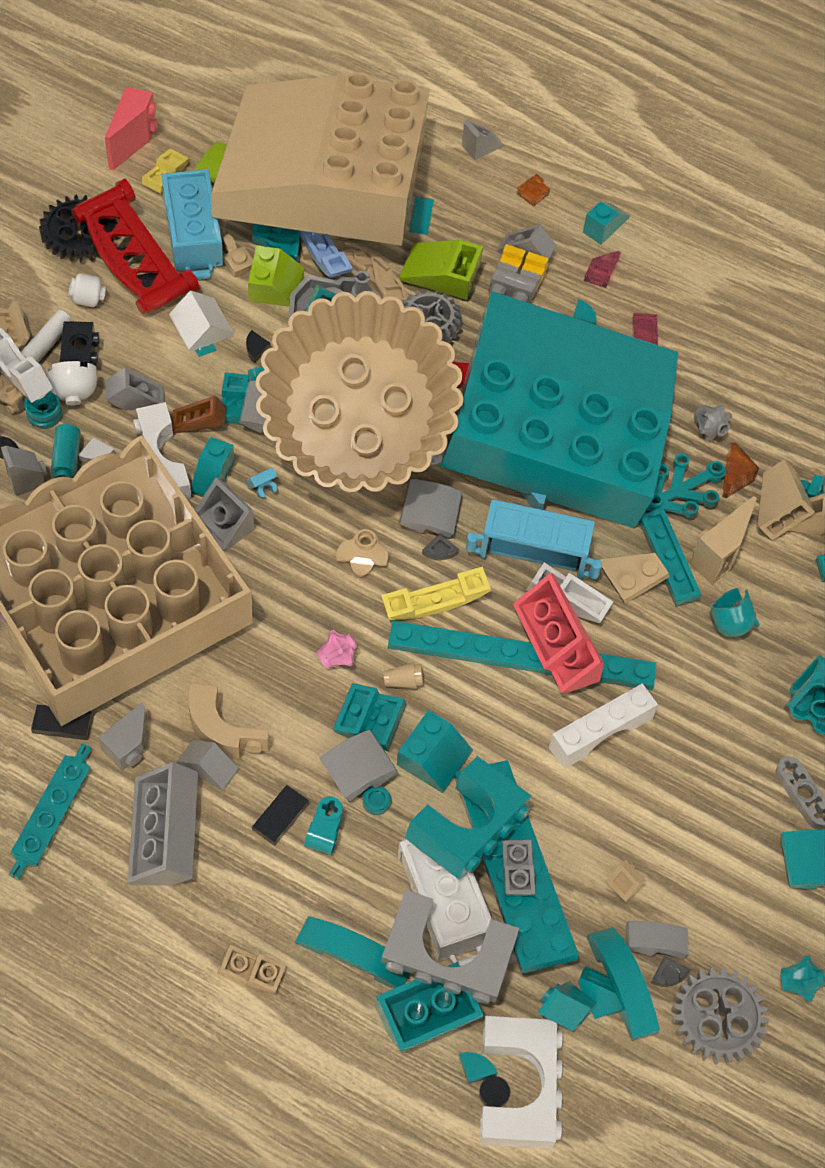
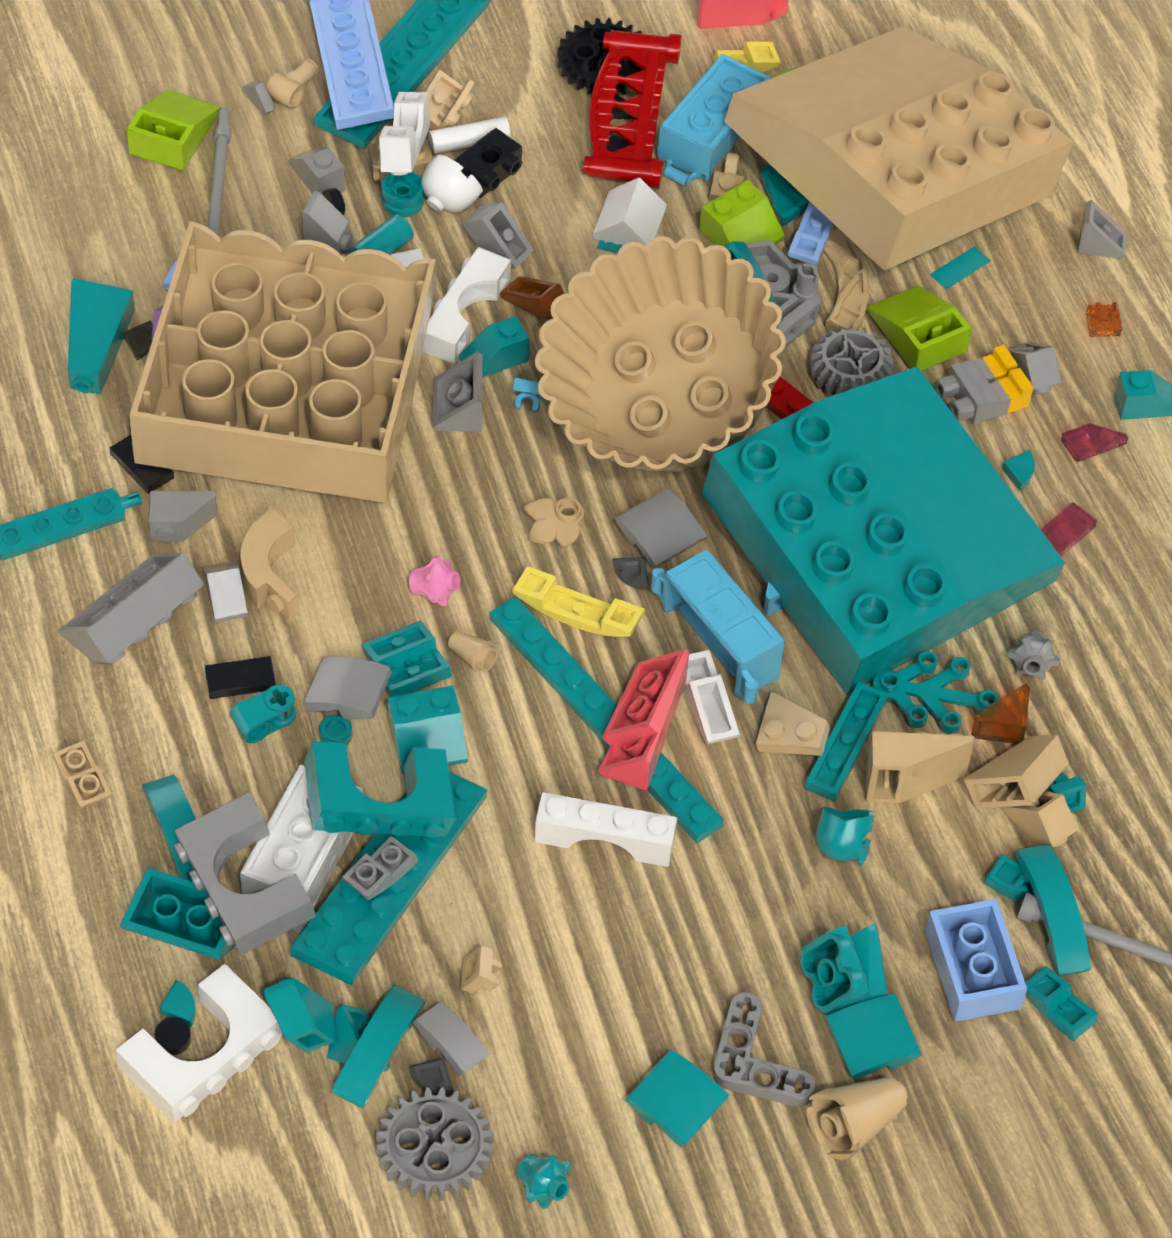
camera: 45 degrees right, 5 degrees down
(86, 290) = (551, 116): white head -> none

